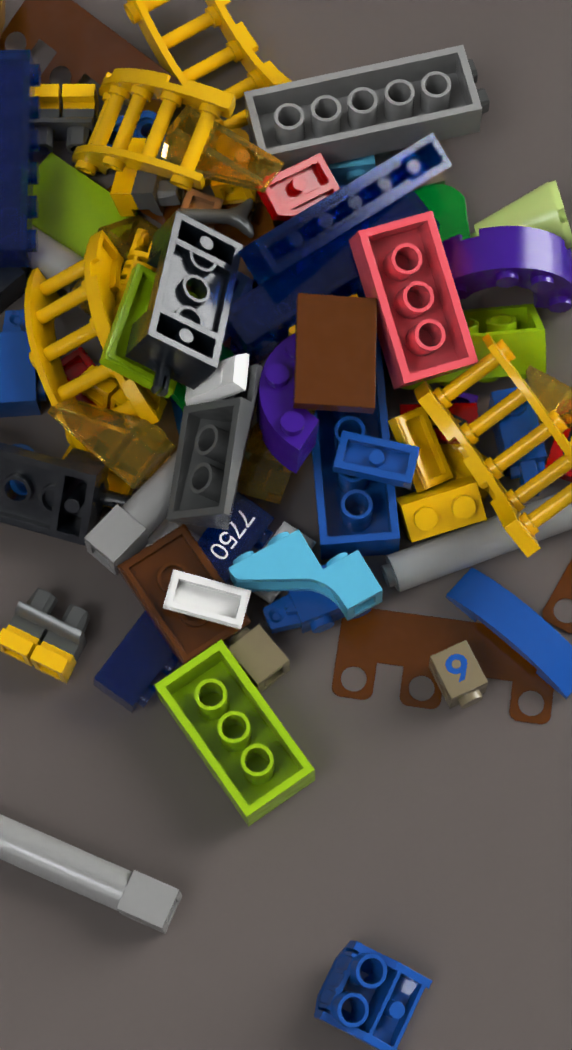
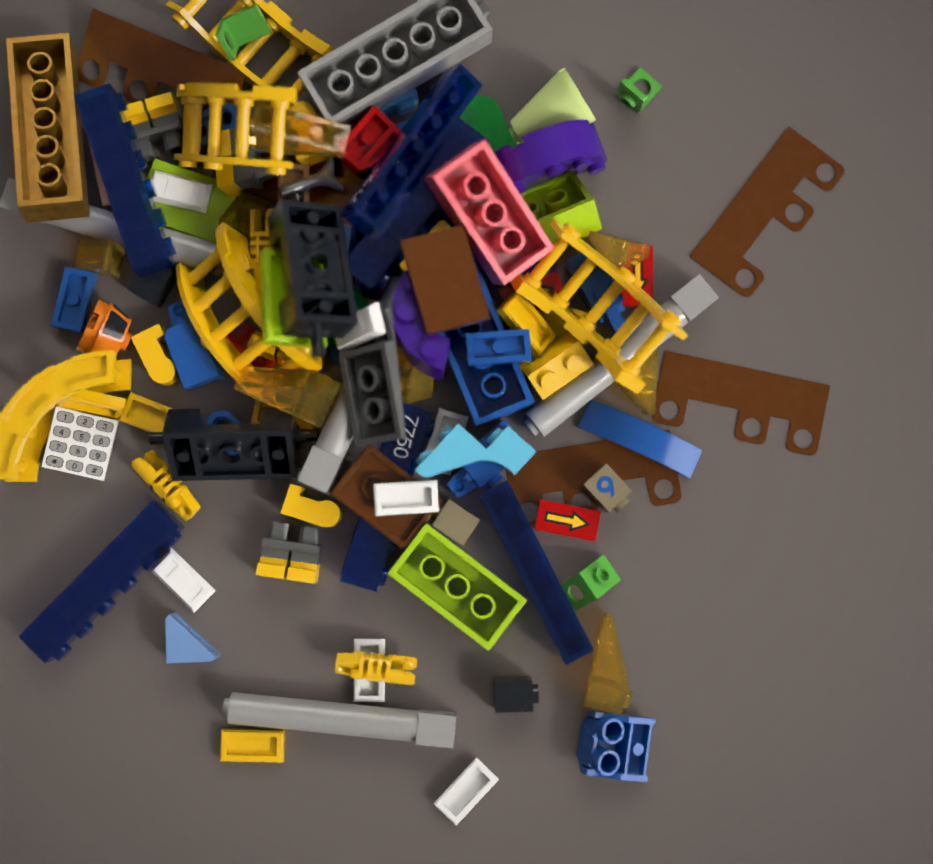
camera: 20 degrees left, 15 degrees up
(68, 195) = (182, 191): none -> white tile
(91, 806) = (369, 690): none -> white tile
(98, 597) = (321, 513): none -> yellow leg
(101, 799) = (376, 667): none -> yellow hinge
(160, 996) = (466, 791): none -> white tile
(198, 41) = (241, 29): none -> bright green bracket
(262, 891) = (515, 694): none -> black brick
(338, 747) = (536, 572): none -> clear blue brick
(386, 908) = (607, 676): none -> clear yellow slope
(397, 701) = (567, 520): none -> red tile
(405, 782) = (592, 581): none -> bright green bracket
(540, 568) = (646, 399): none -> clear yellow slope

